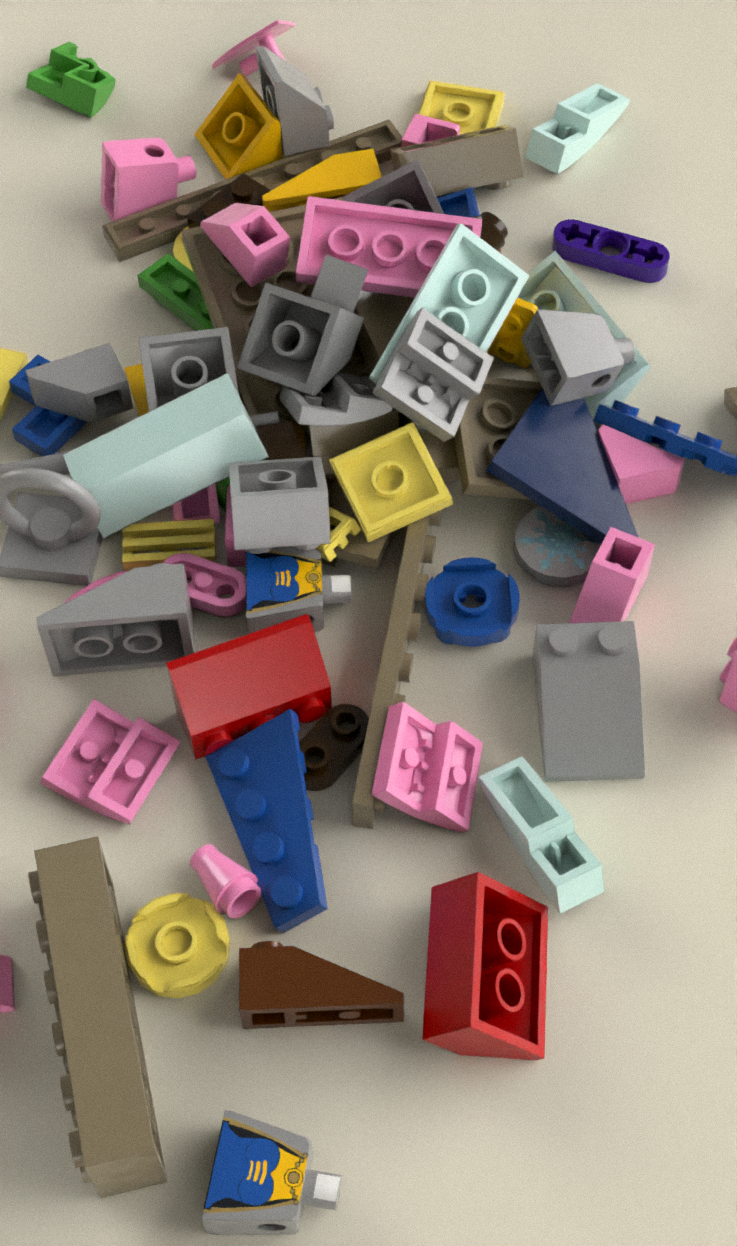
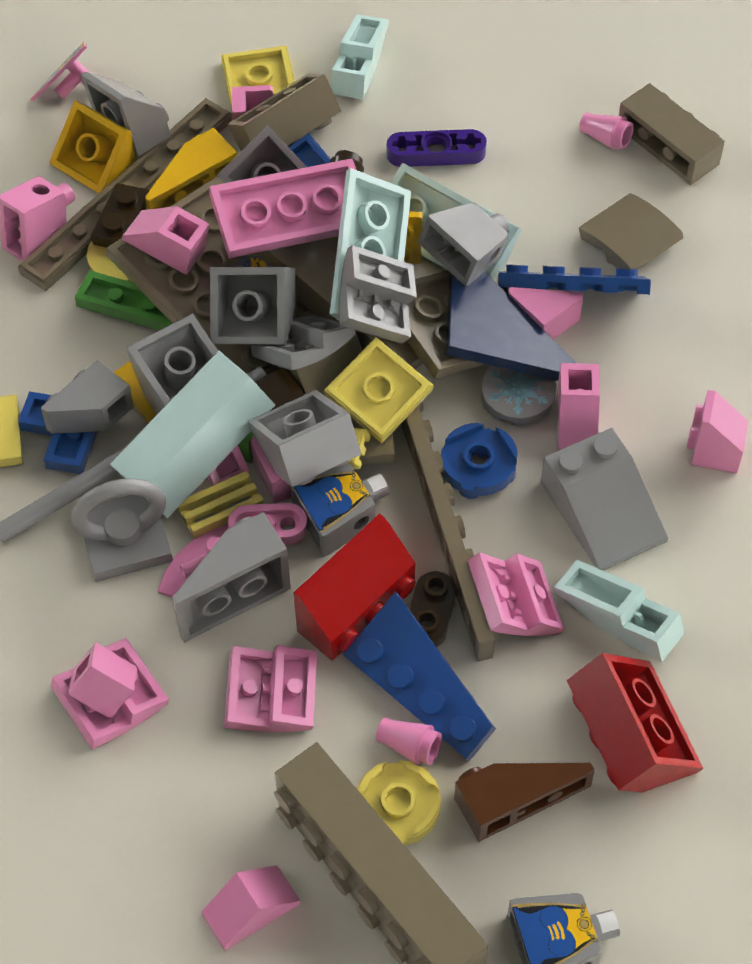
camera: 25 degrees left, 0 degrees up
(339, 283) = (268, 247): light grey tile -> none

